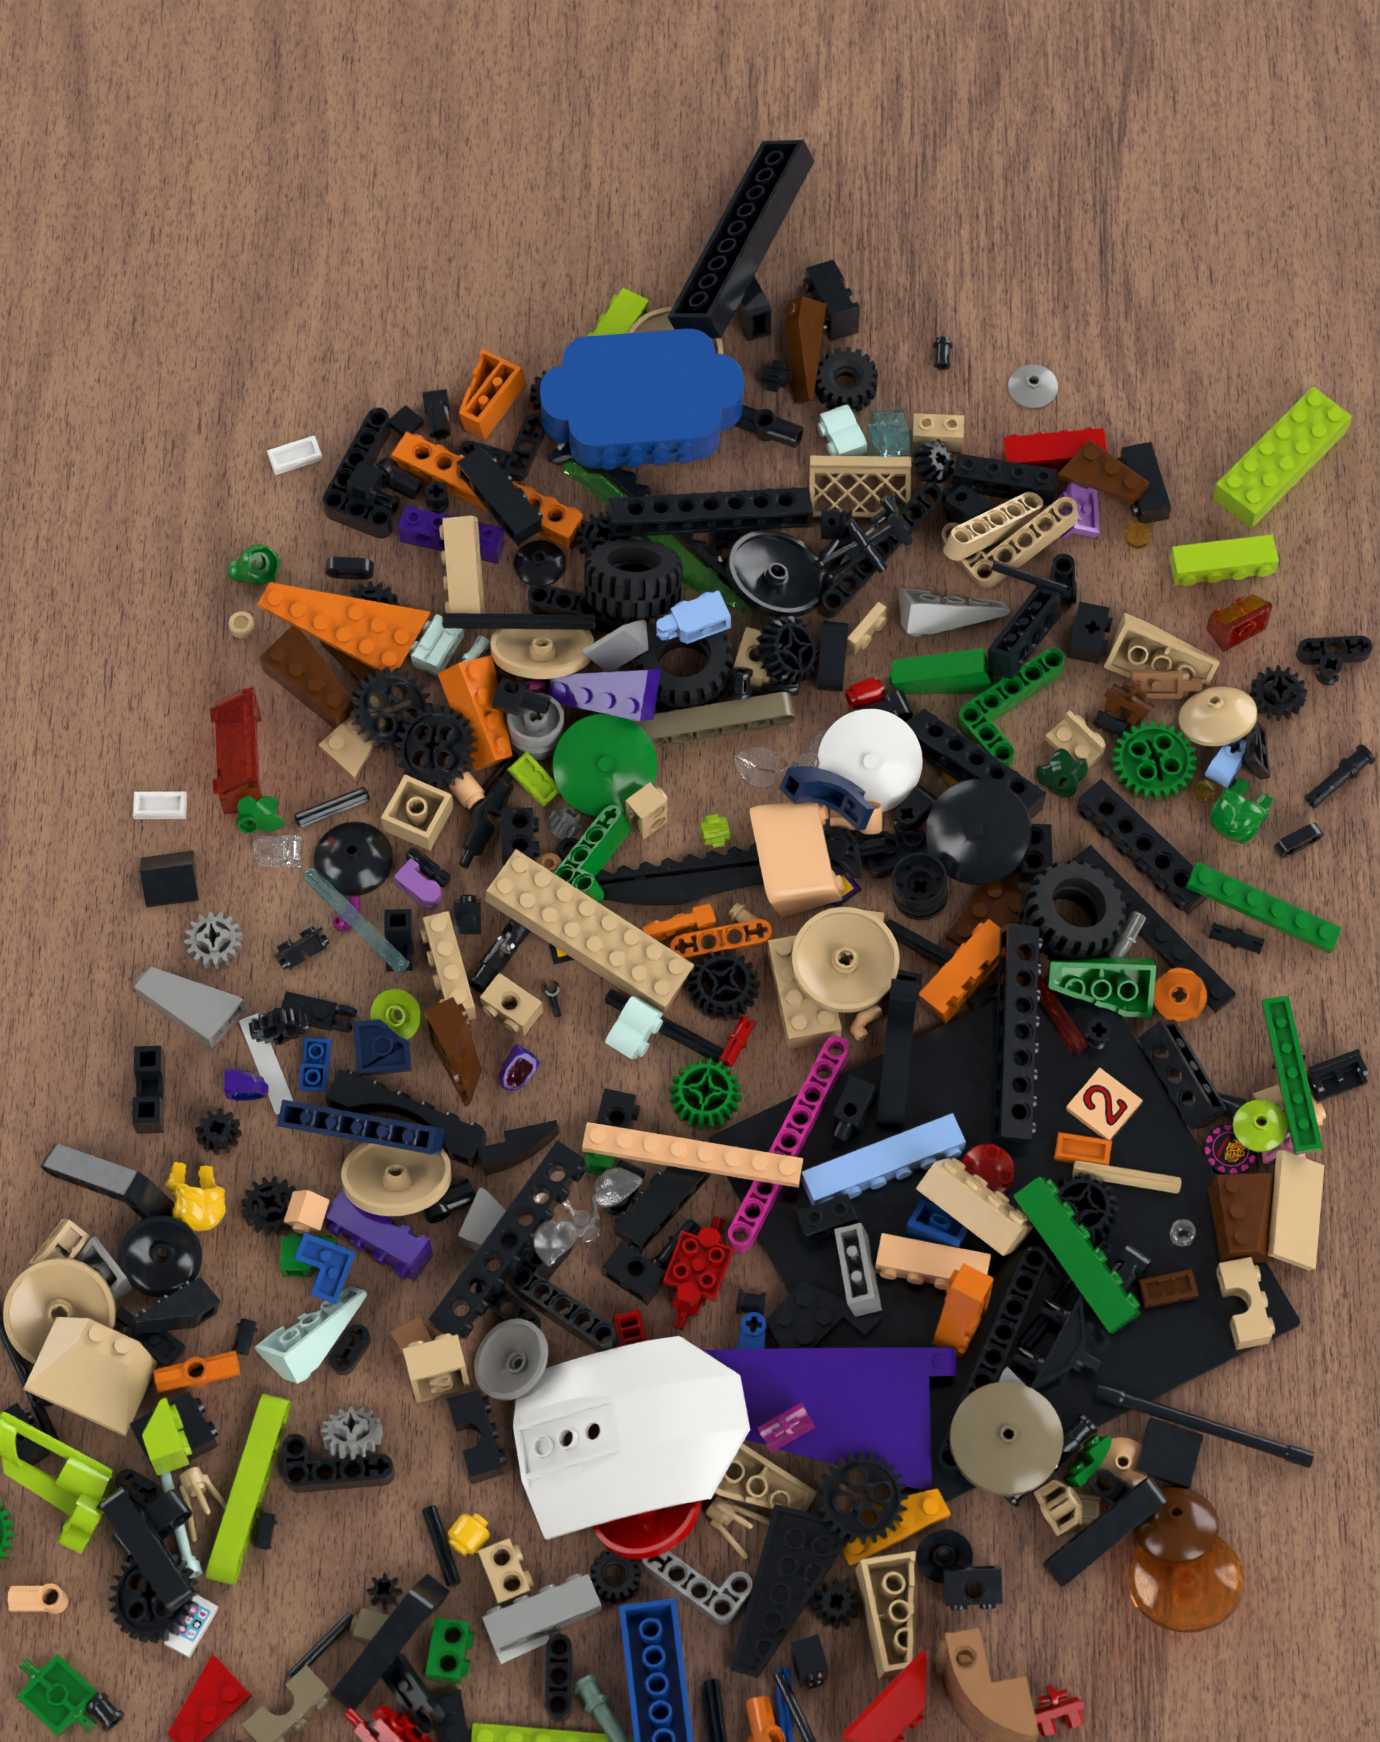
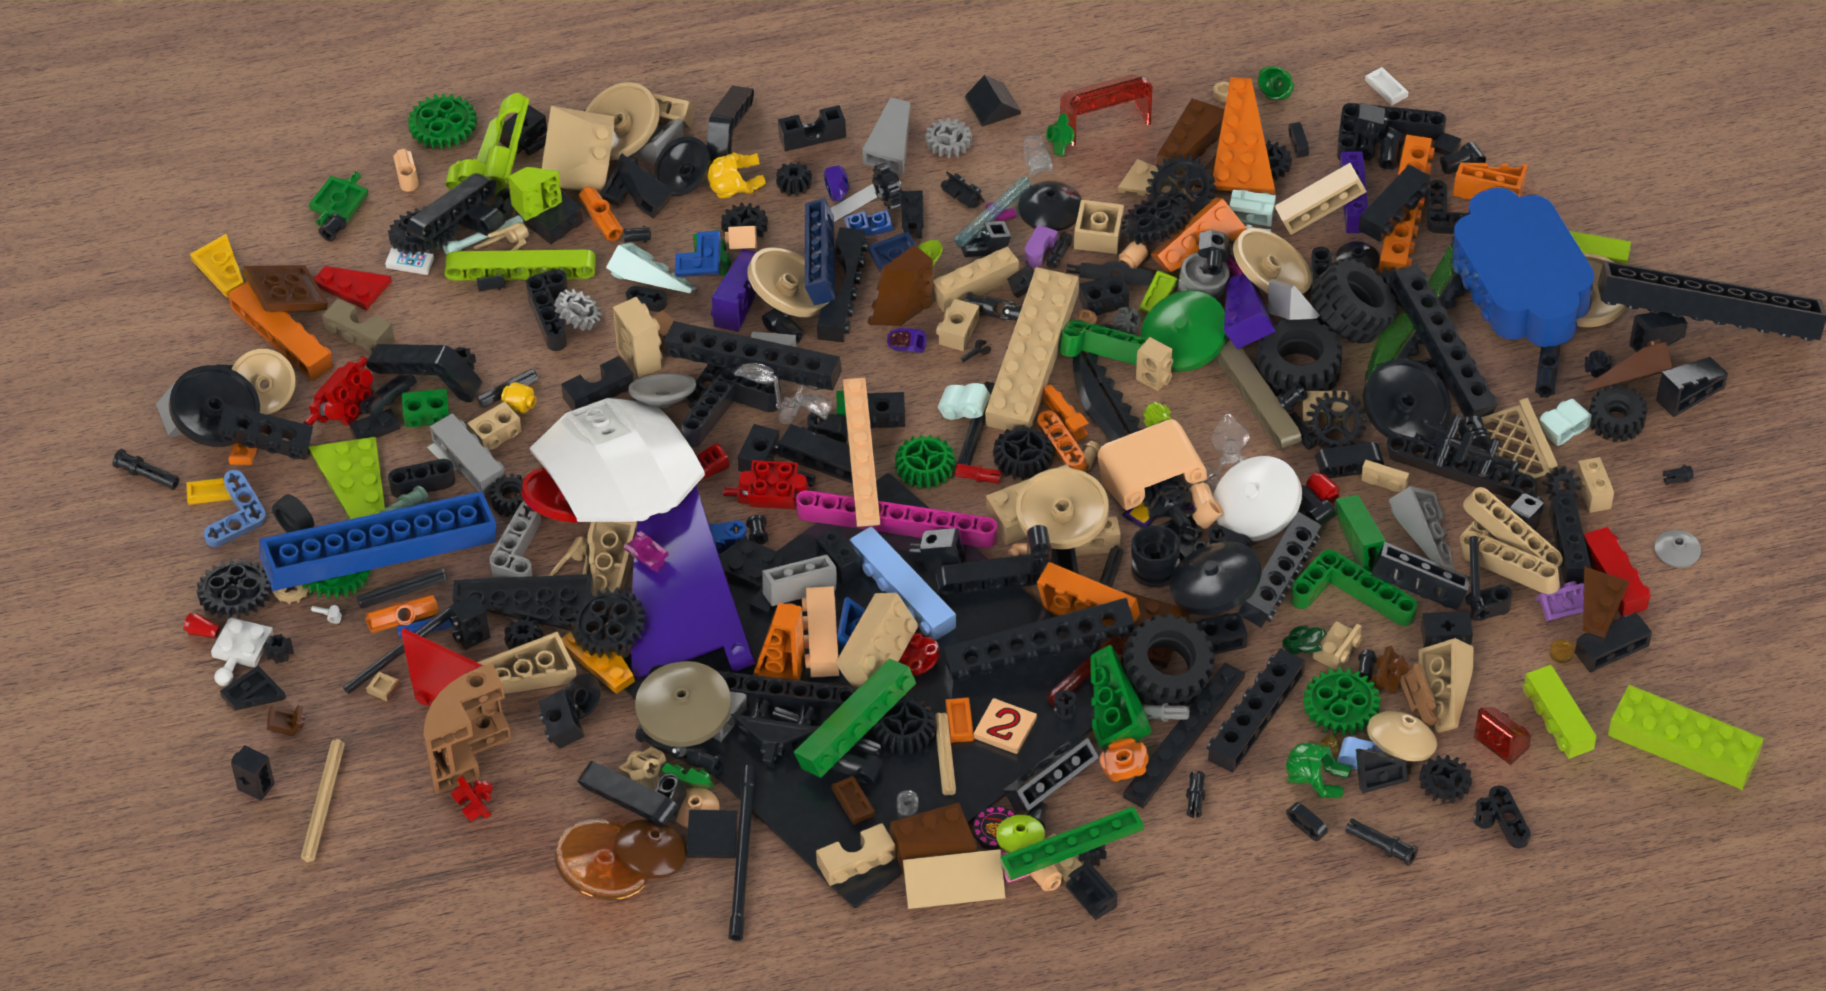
camera: 75 degrees right, 15 degrees down
(160, 805) = (1050, 82): white tile -> none
(323, 1644) = (410, 336): black bar -> none
(332, 807) = (1088, 181): black axle -> none
(439, 490) = (1386, 175): black bush -> none
(518, 621) = (1288, 244): black axle -> none
(518, 1146) = (851, 364): black slope -> none
(695, 619) = (1330, 342): light blue hinge -> none
(827, 788) = (1212, 461): dark blue arch -> none
(890, 432) = (1574, 446): clear light blue brick -> none
(1263, 907) = (1228, 802): green plate -> none

